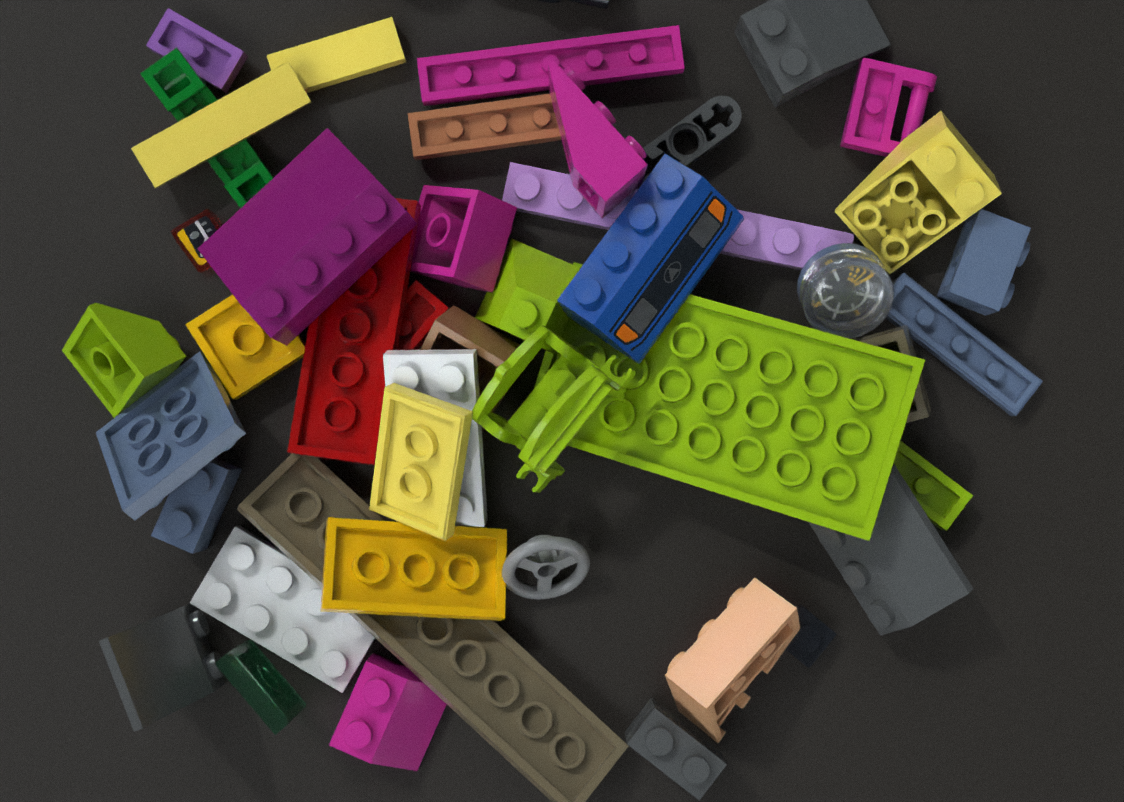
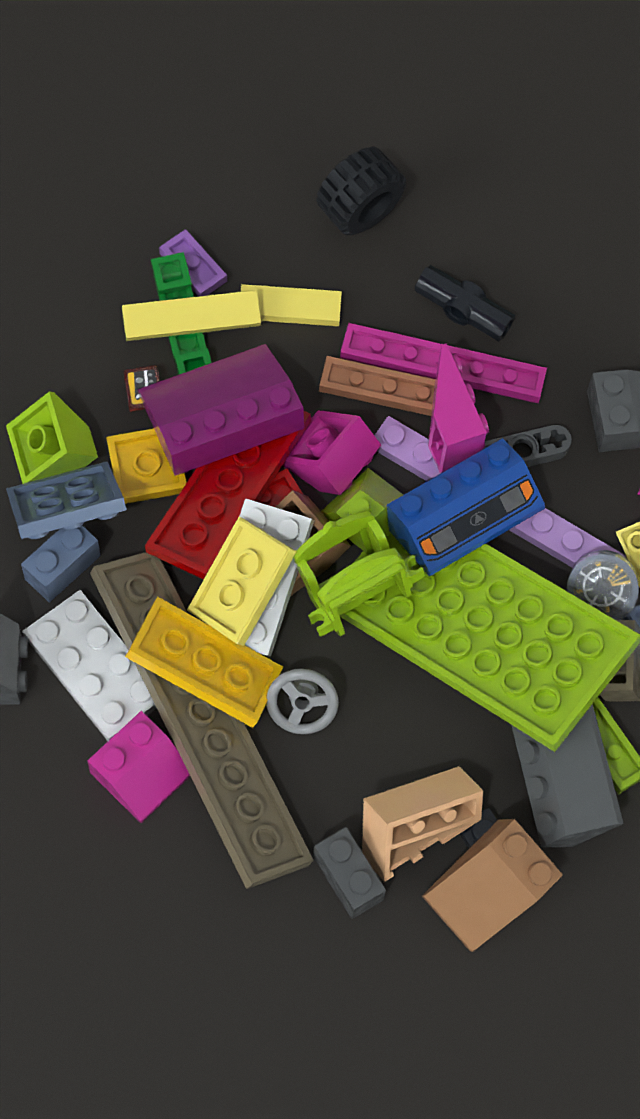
camera: 15 degrees right, 20 degrees down
(261, 685) = (55, 700): clear green tile -> none
(840, 699) = (492, 883): none -> medium nougat slope

